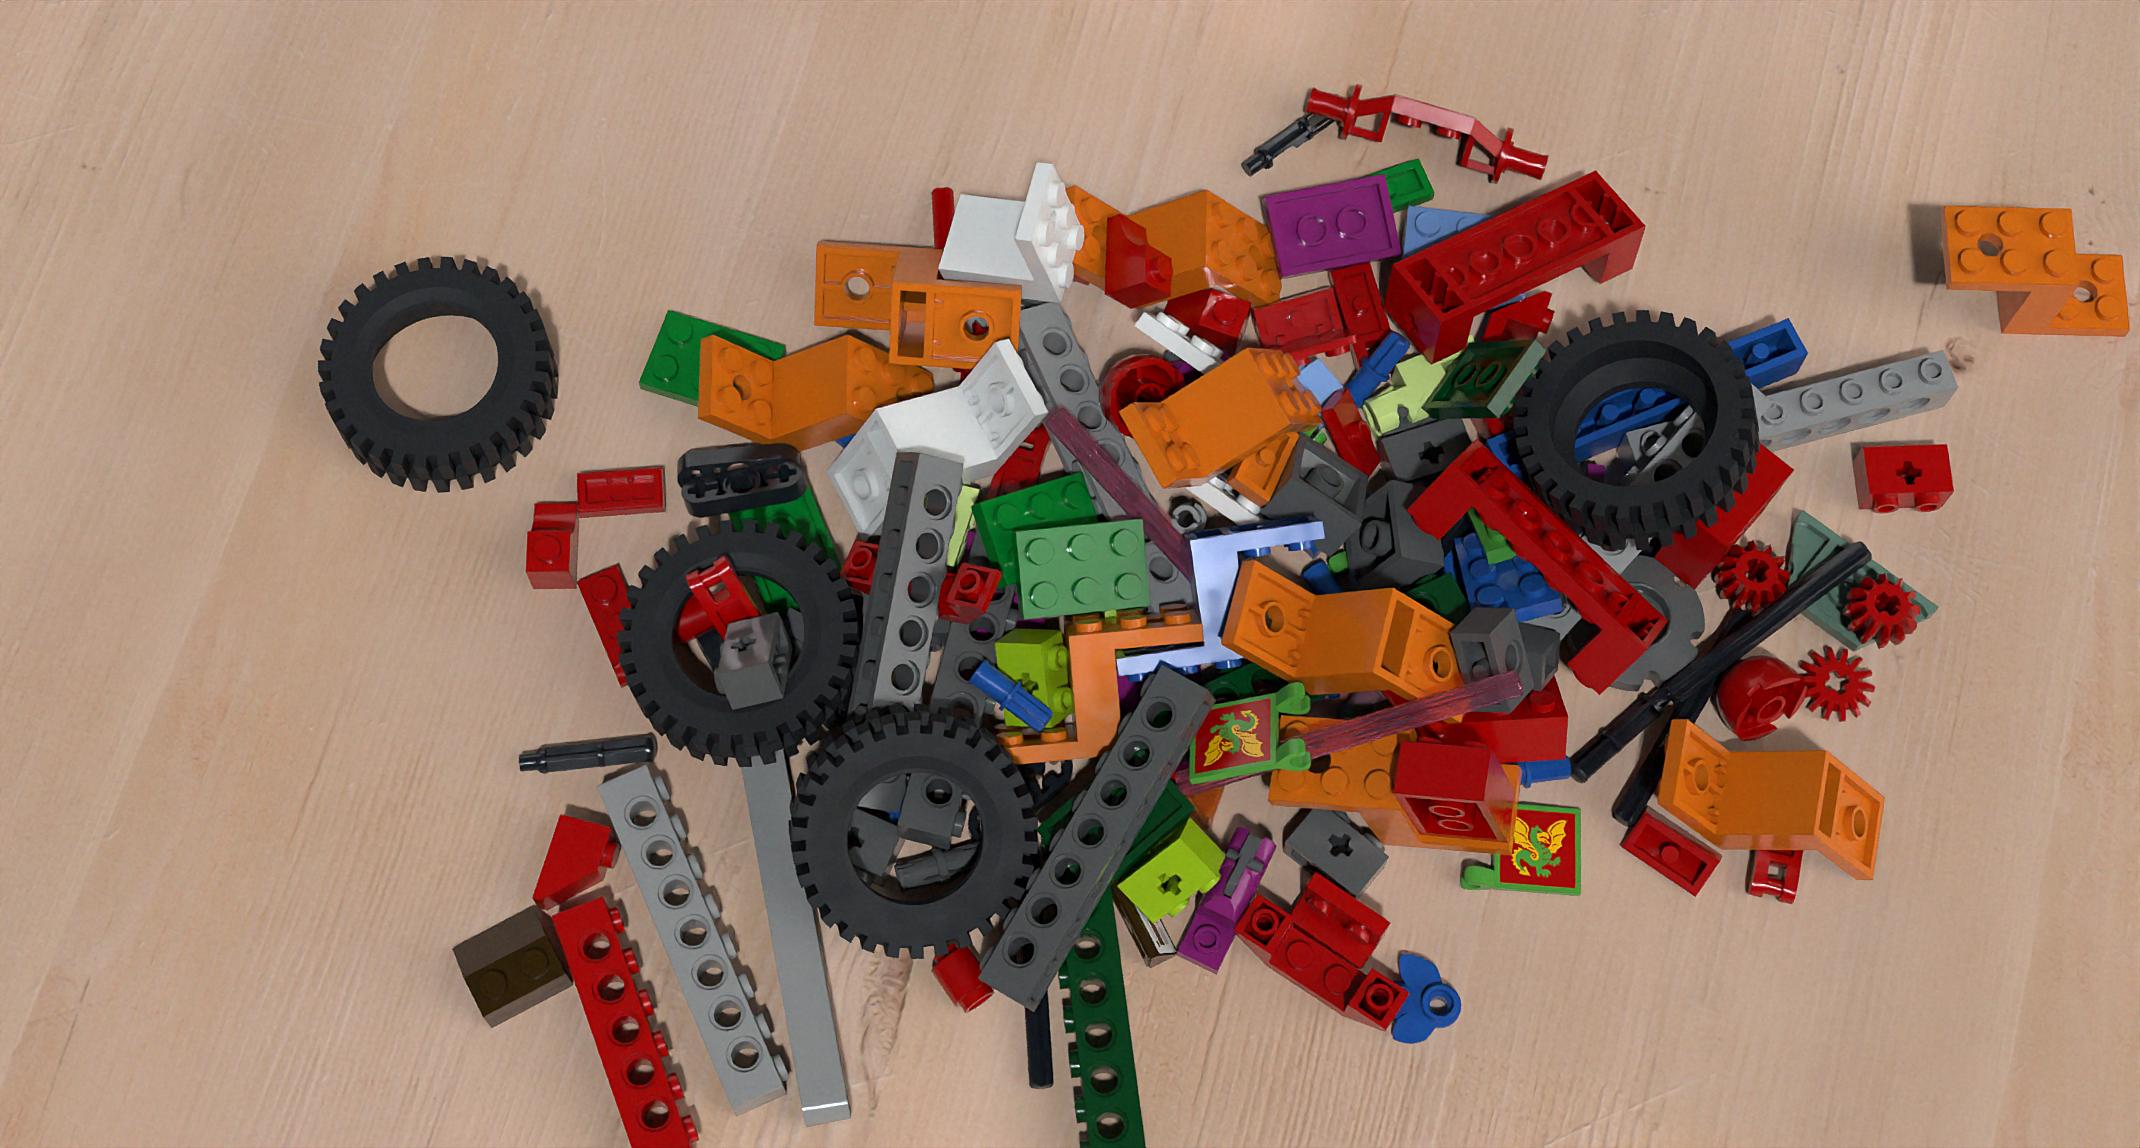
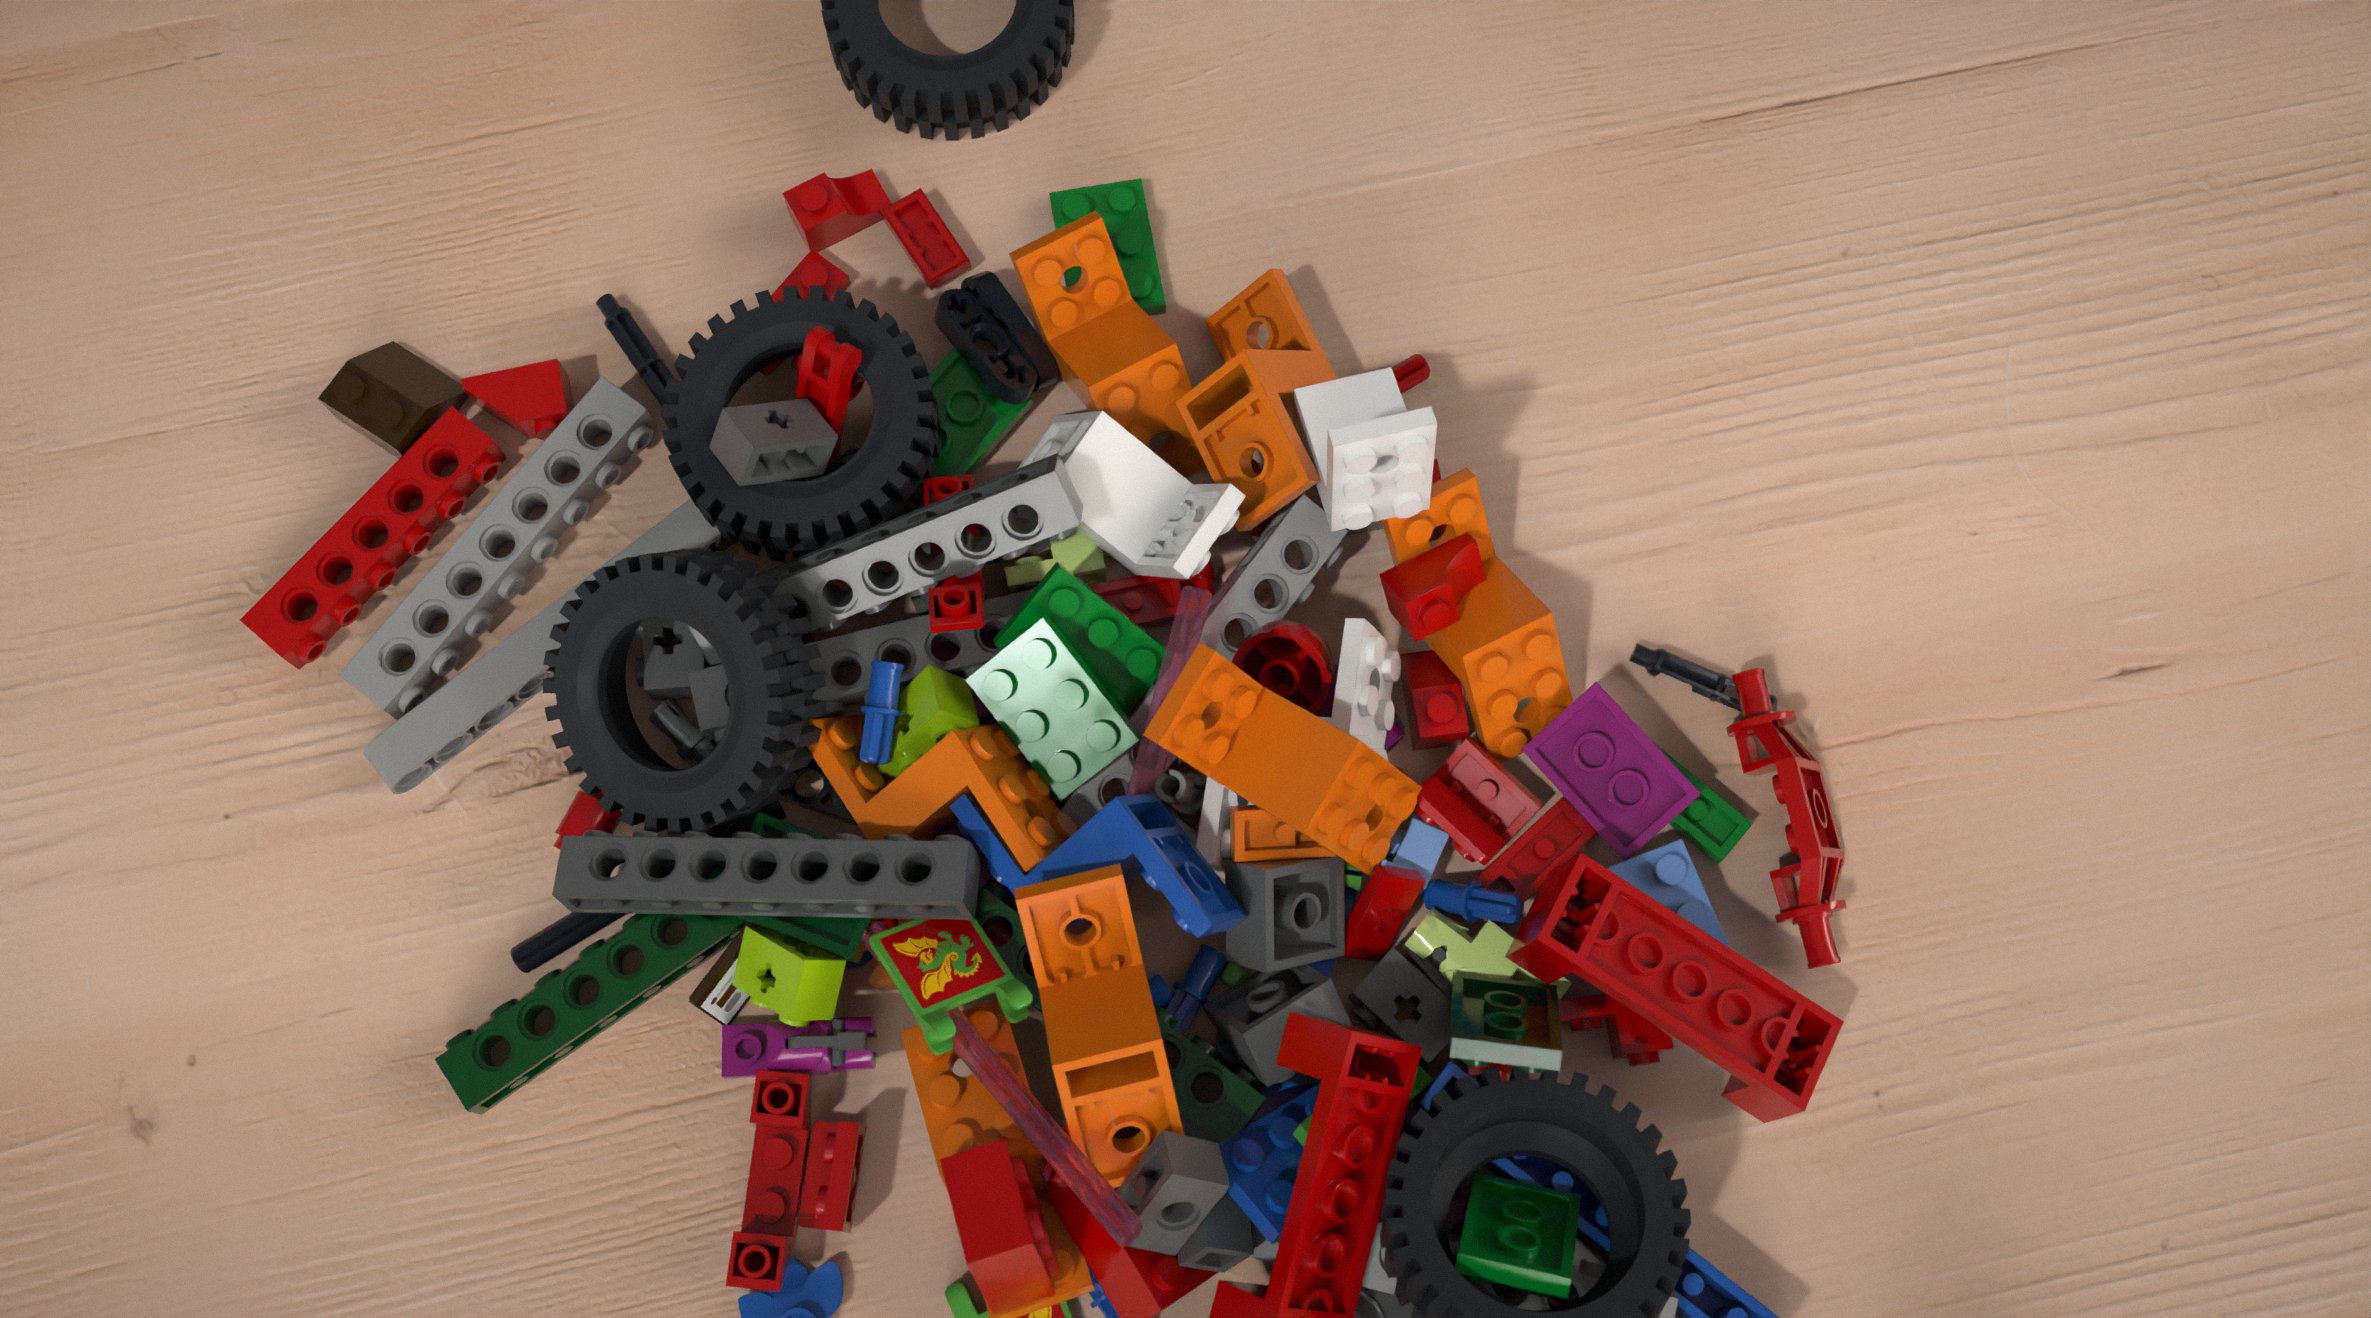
camera: 60 degrees right, 5 degrees up
(1329, 829) = (887, 1158): dark grey brick -> none
(1640, 444) = (1519, 1236): none -> green plate

